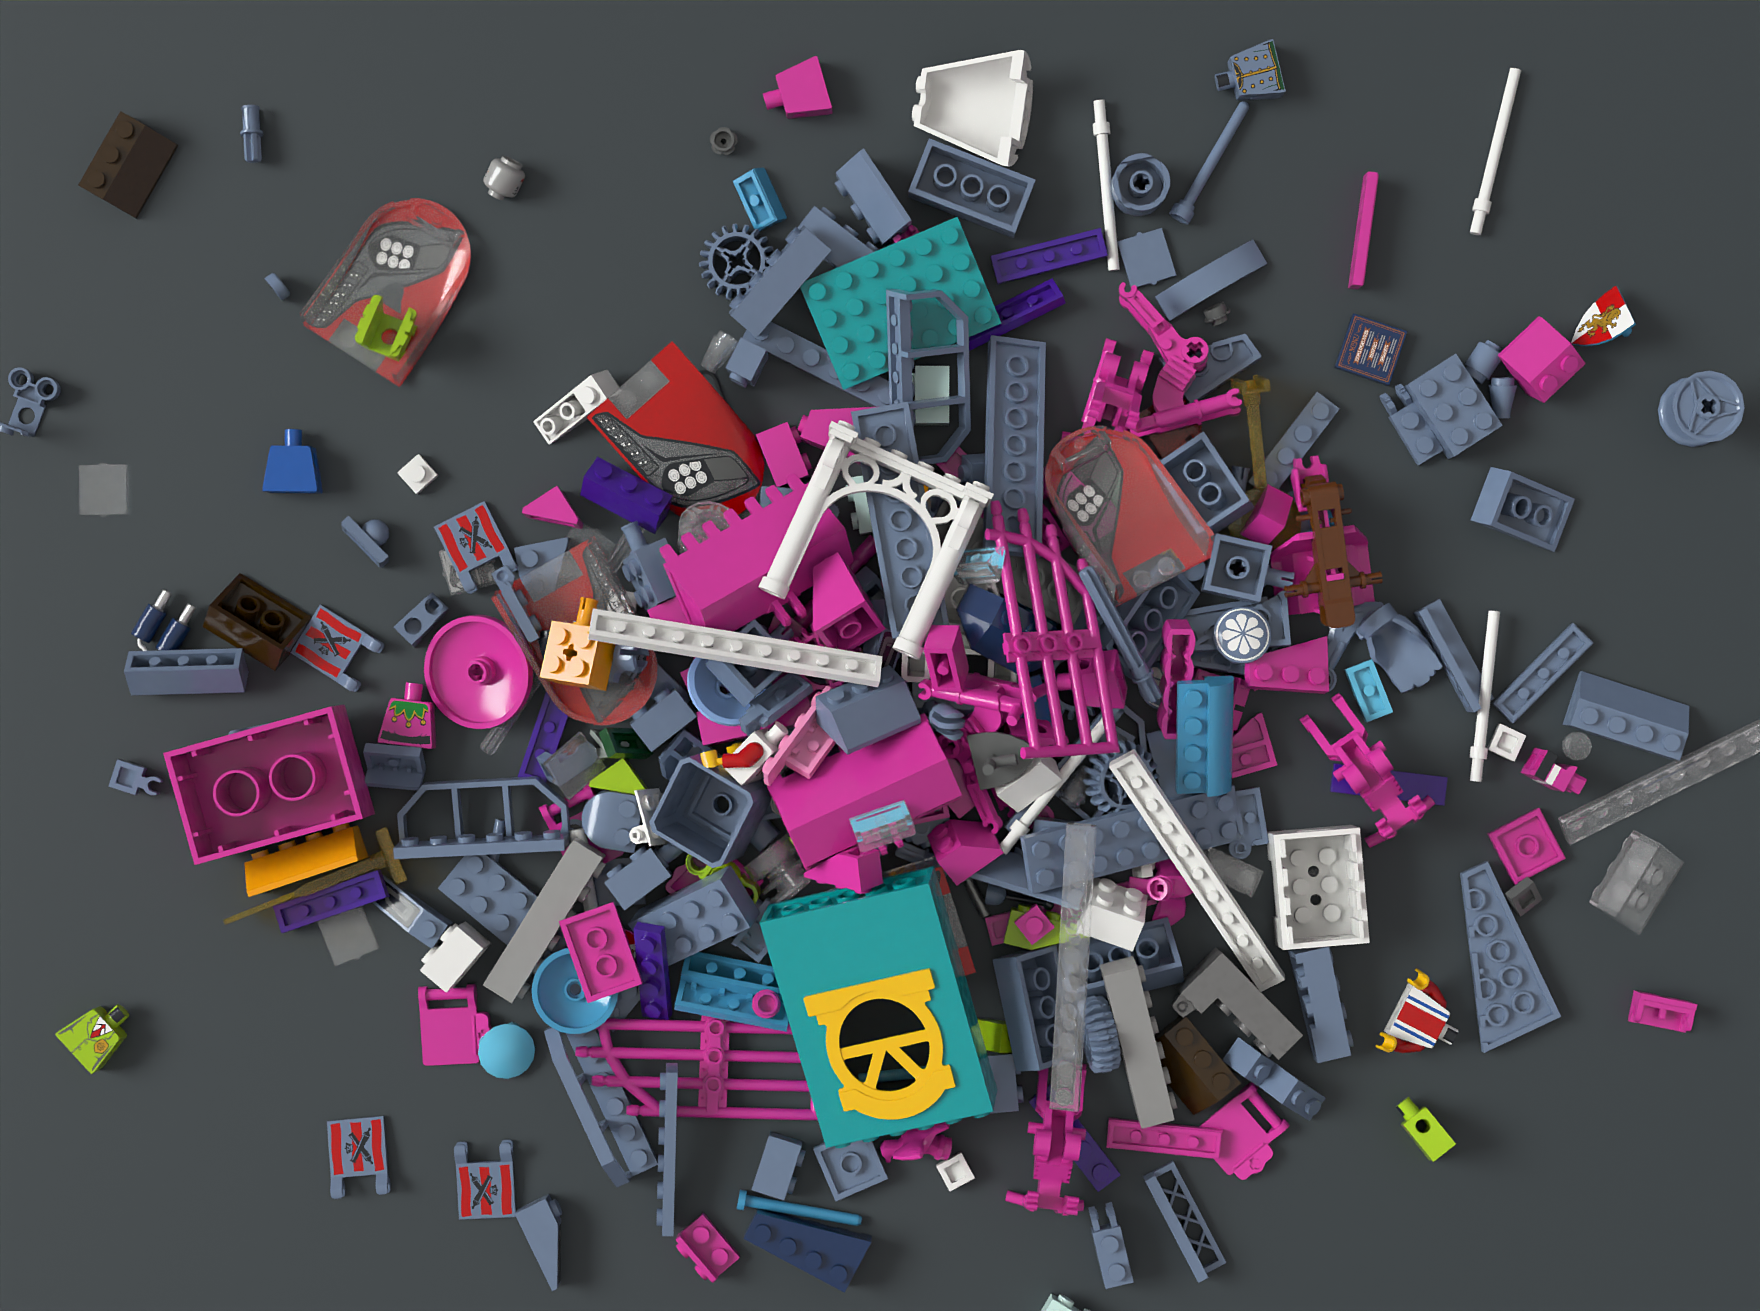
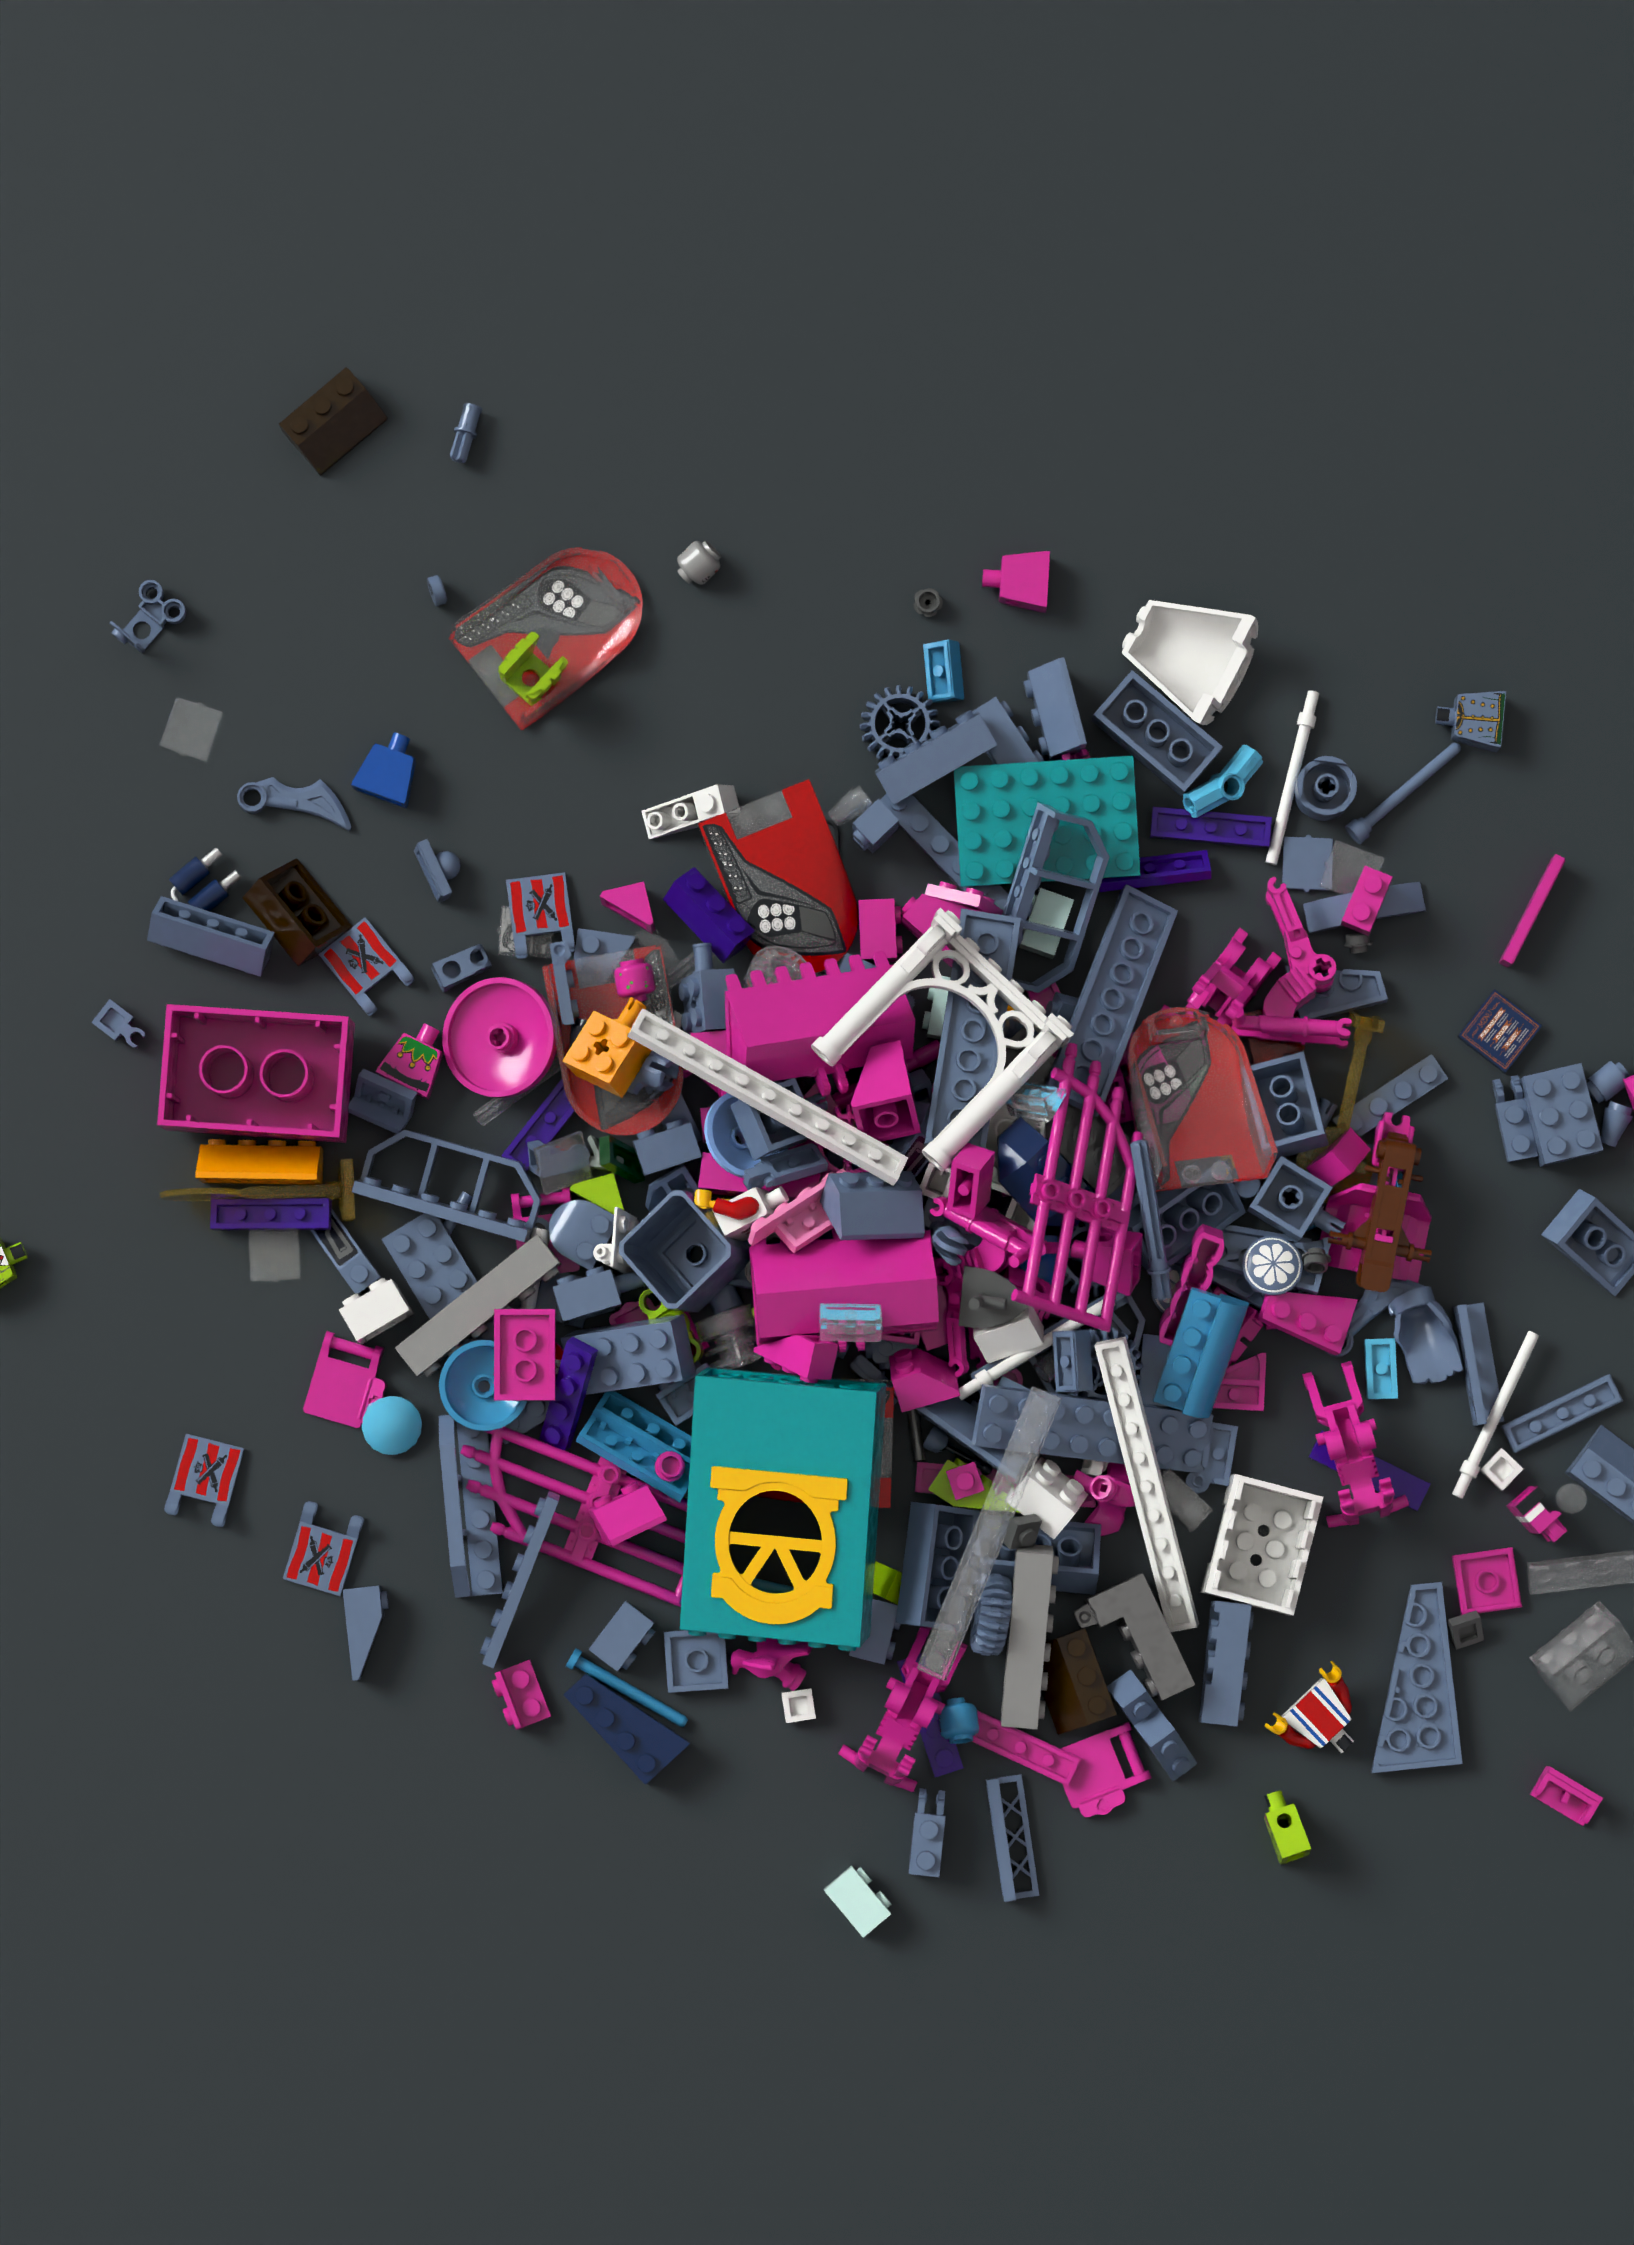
camera: 20 degrees right, 5 degrees down
(234, 515) = (313, 799): none -> sand blue piece
(418, 474) = (508, 822): white plate -> none
(580, 578) = (634, 979): none -> dark pink head
(742, 1060) = (626, 1514): none -> dark pink slope
(855, 399) = (971, 898): none -> plate
(1055, 199) = (1212, 793): none -> medium azure piece
(1093, 785) = (1072, 1361): none -> sand blue slope
(1102, 955) = (1022, 1531): none -> dark grey plate
(1102, 1137) = (958, 1721): none -> dark azure head
(1187, 250) = (1346, 866): none -> clear piece
(1213, 274) = (1366, 900): none -> dark pink brick
(1279, 617) = (1315, 1260): none -> dark grey plate

